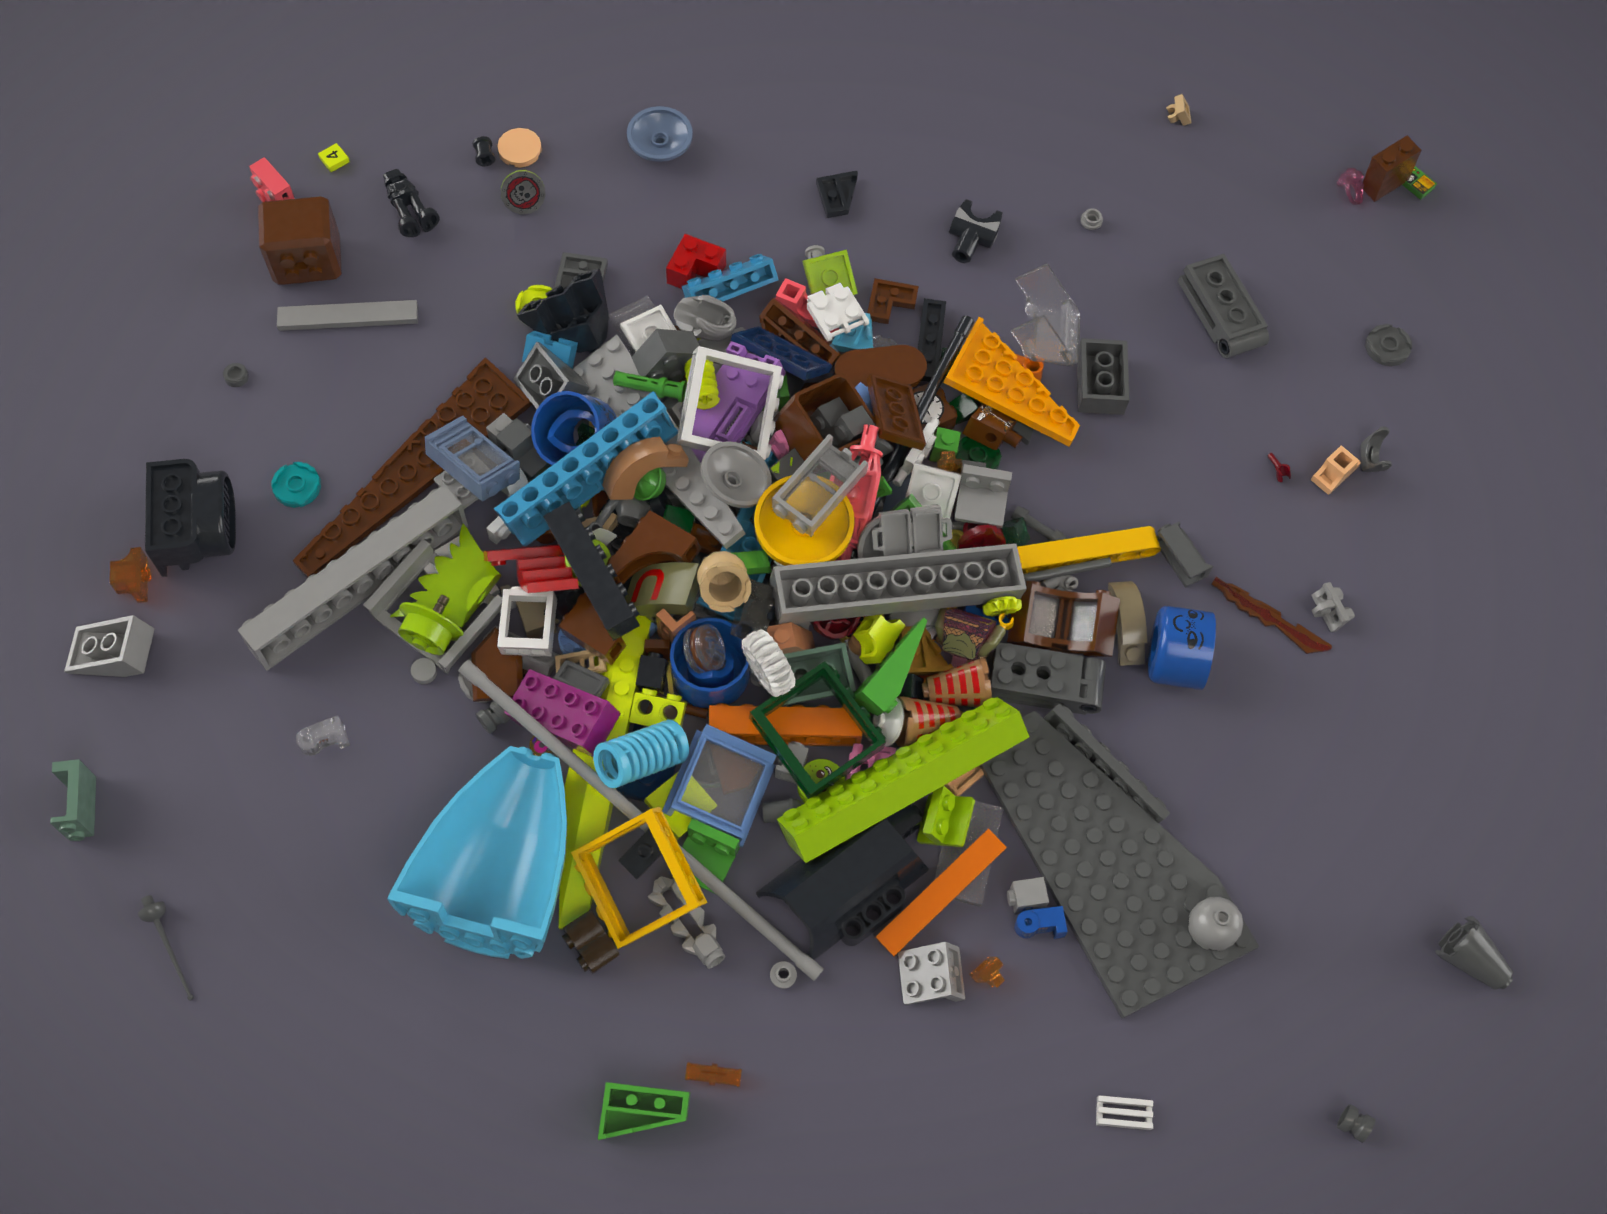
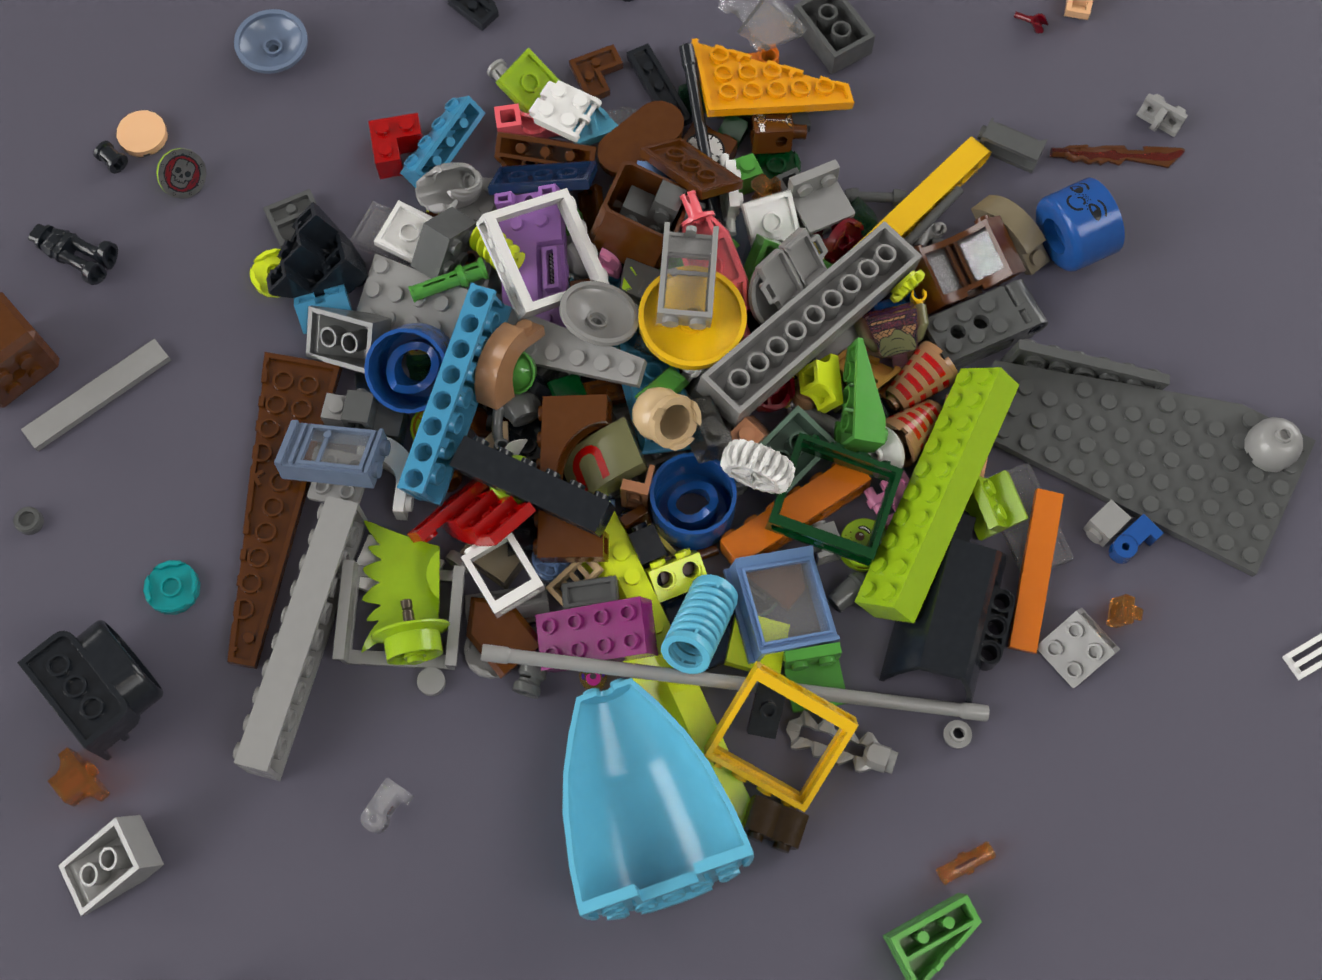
camera: 30 degrees left, 5 degrees up
(704, 648) = (683, 491): clear head -> none

